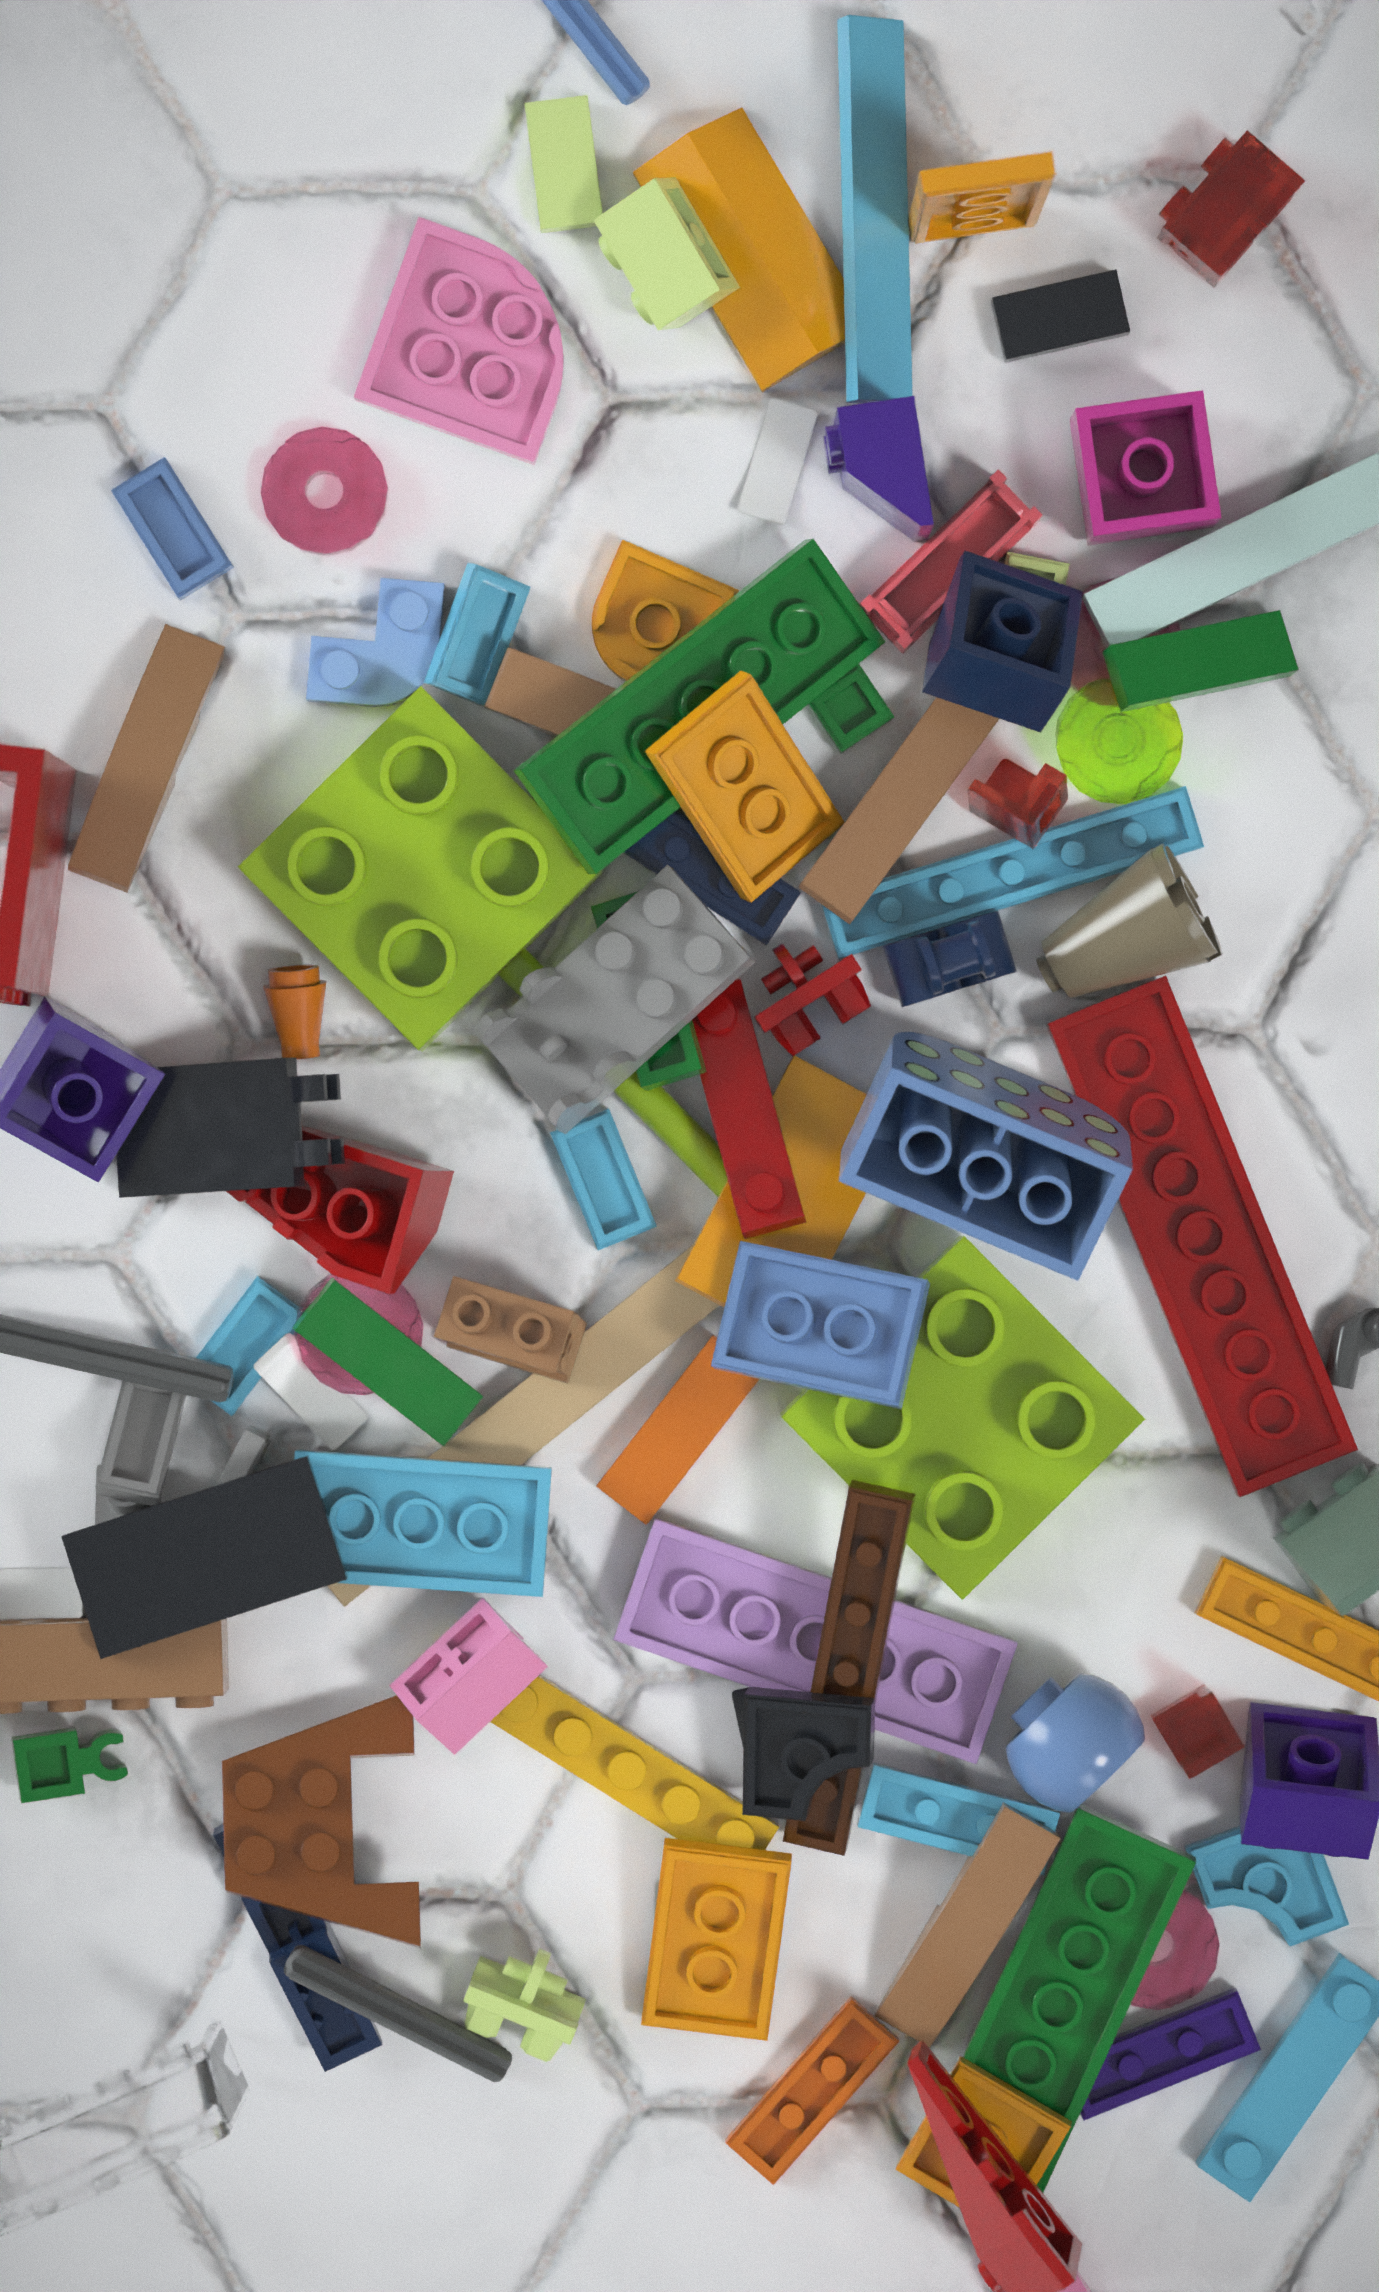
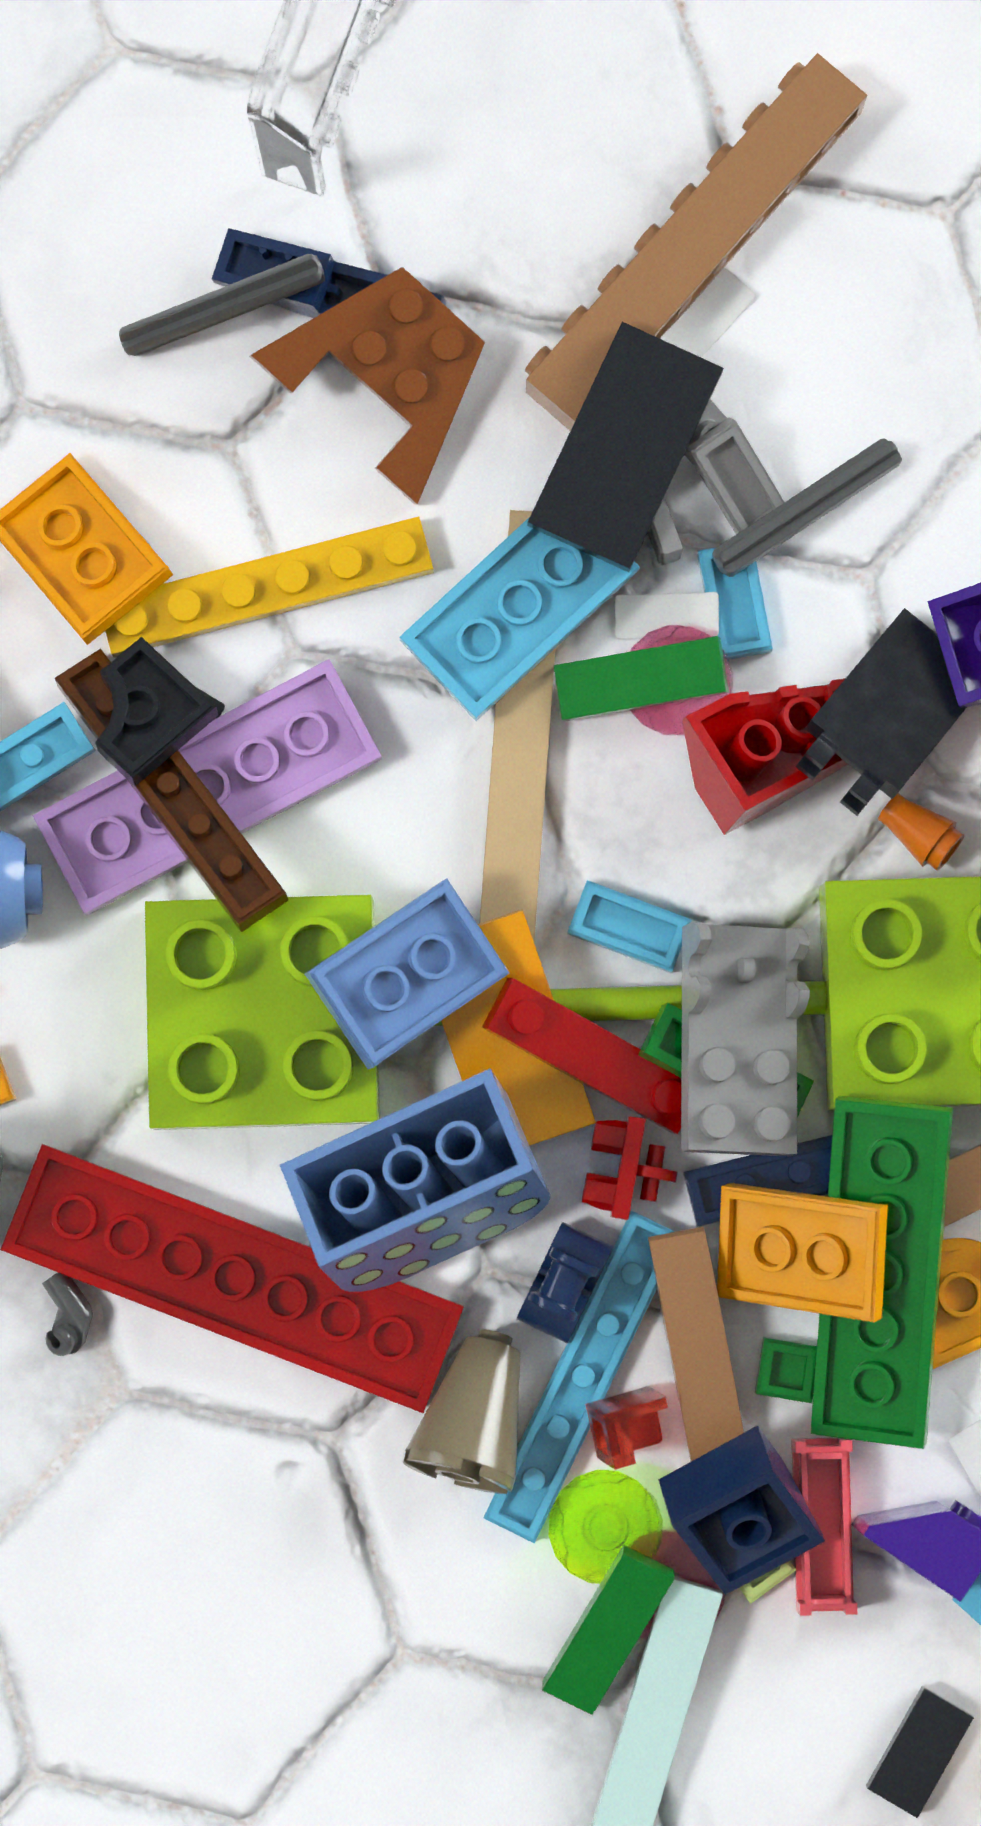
camera: 135 degrees right, 5 degrees down
(54, 1763) = (581, 239): green plate -> none
(468, 1676) = (392, 544): bright pink hinge -> none
(510, 1329) = (589, 775): medium nougat hinge -> none
(526, 1997) = (154, 394): yellowish green hips -> none
(675, 1435) = (421, 817): orange tile -> none
(1145, 467) = (769, 1713): dark pink brick -> none

